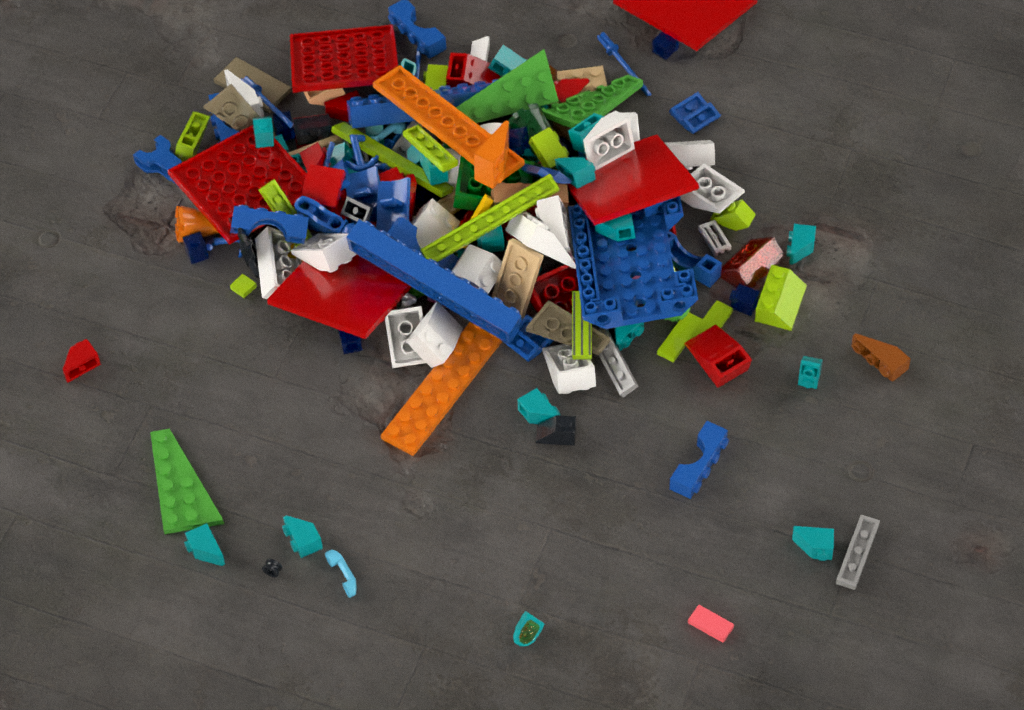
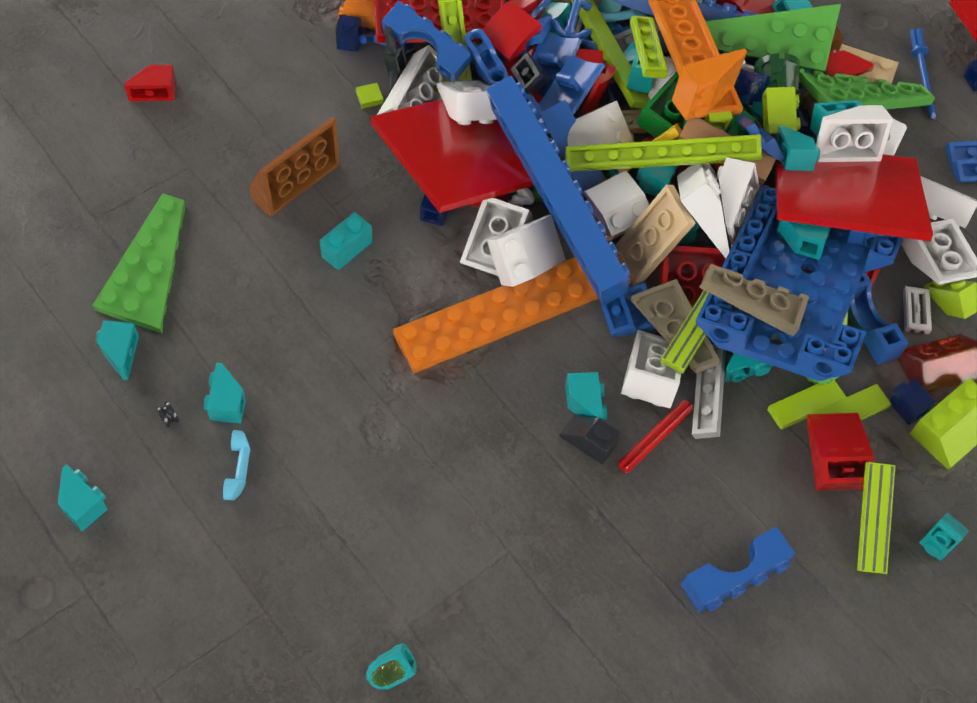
camera: 25 degrees right, 5 degrees up
(236, 364) = (296, 169): none -> dark orange slope
(257, 647) = (78, 500): none -> teal slope
(306, 394) = (346, 241): none -> teal brick
(513, 176) = (719, 119): none -> lime tile
(597, 409) = (655, 436): none -> red axle
(622, 283) = (768, 304): none -> dark tan wing
(763, 382) = (876, 518): none -> lime tile

